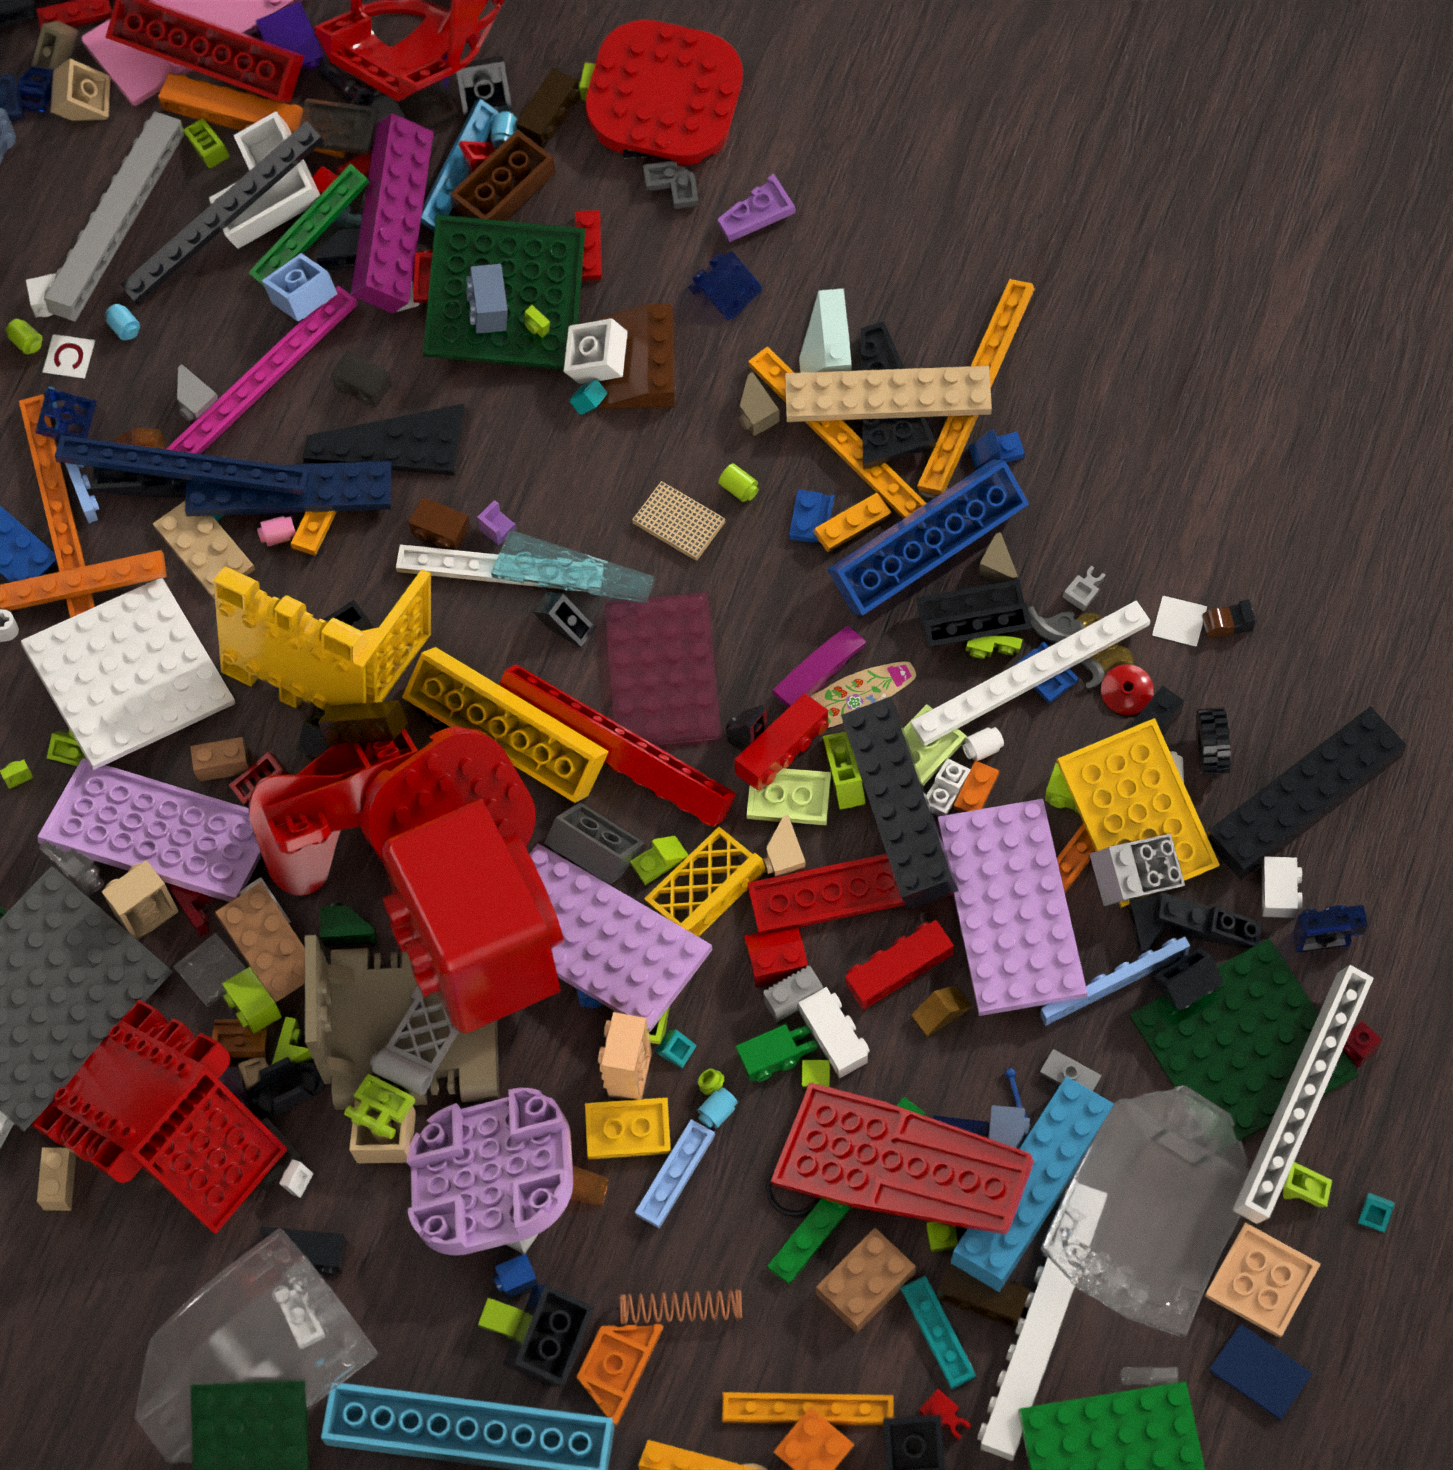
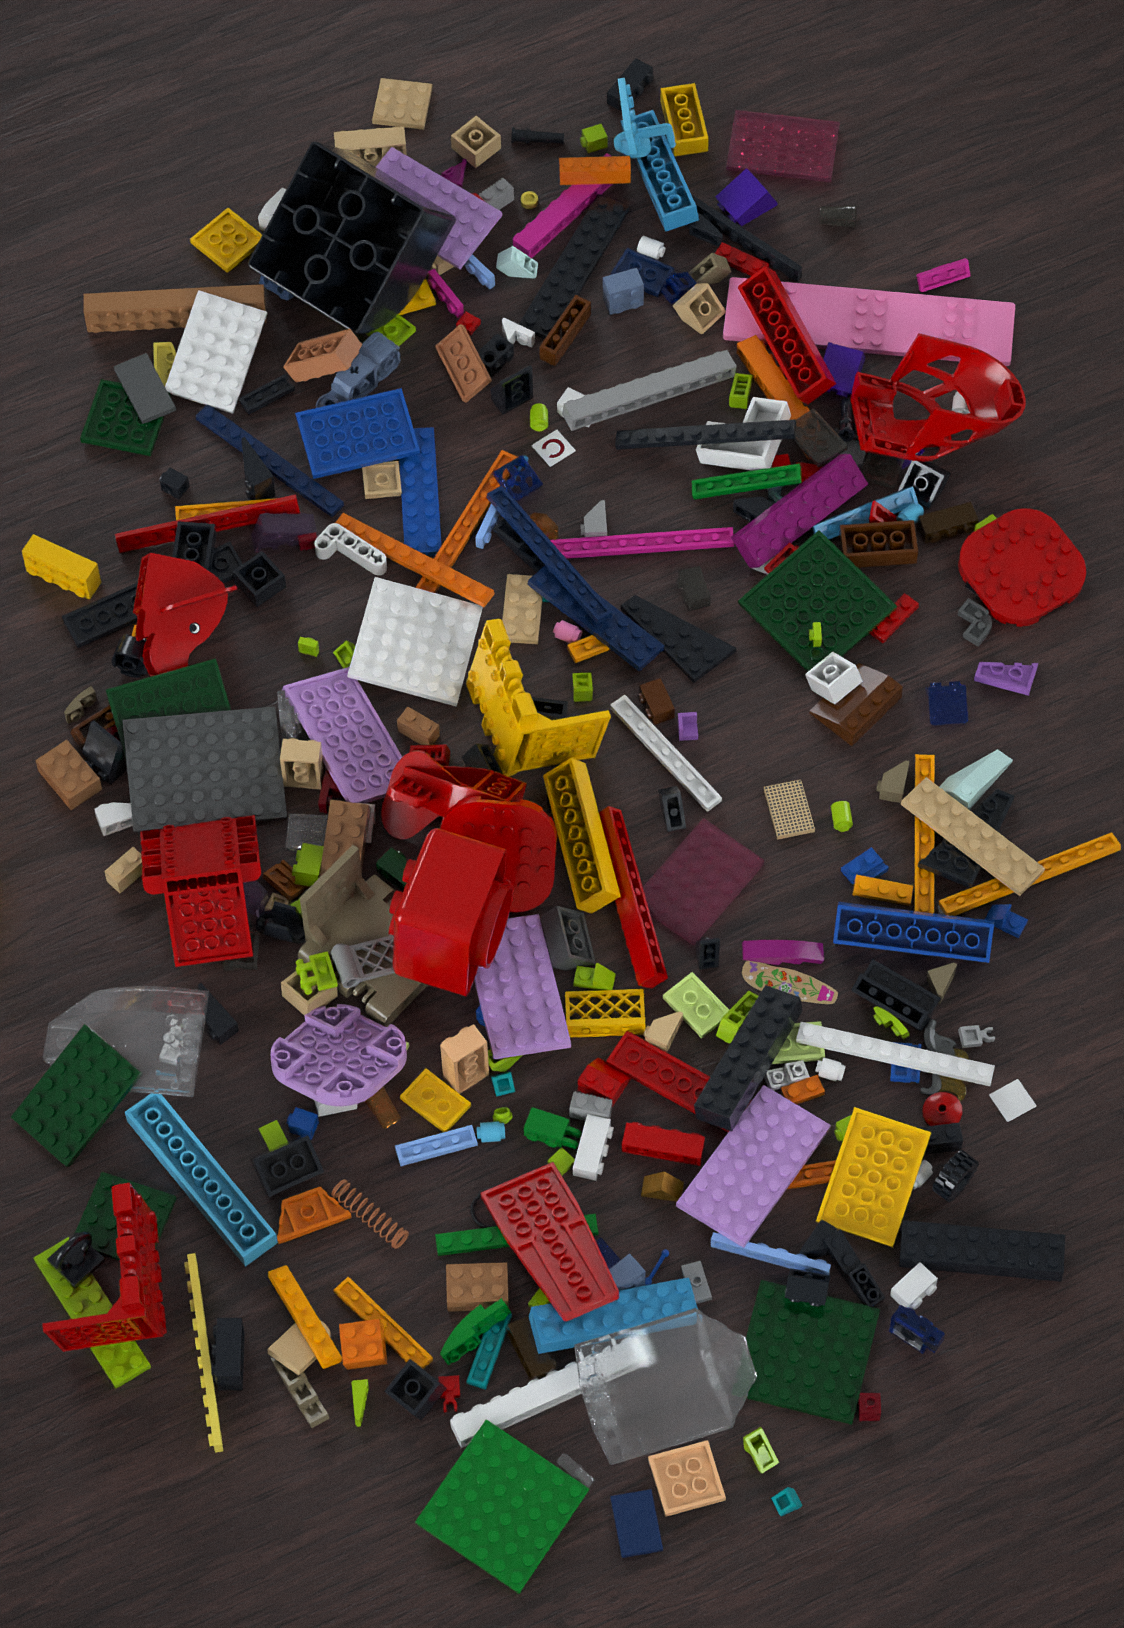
camera: 40 degrees right, 5 degrees down
(122, 322) = (598, 452): medium azure brick -> none
(296, 1178) = (243, 975): white plate -> none
(299, 287) = (708, 510): light blue brick -> none
(348, 571) = (582, 687): none -> lime slope
(363, 722) = (502, 767): dark brown brick -> none
(487, 298) = (798, 598): sand blue brick -> none
(549, 564) = (693, 773): clear light blue wing -> none
(588, 396) = (807, 700): teal slope -> none
(781, 742) = (719, 972): red brick -> none
(905, 1340) = (466, 1333): none -> green slope
(1137, 869) = (841, 1206): light grey slope -> none
(1229, 620) = (1038, 1122): leg -> none
(1303, 1095) = (805, 1399): white brick -> none

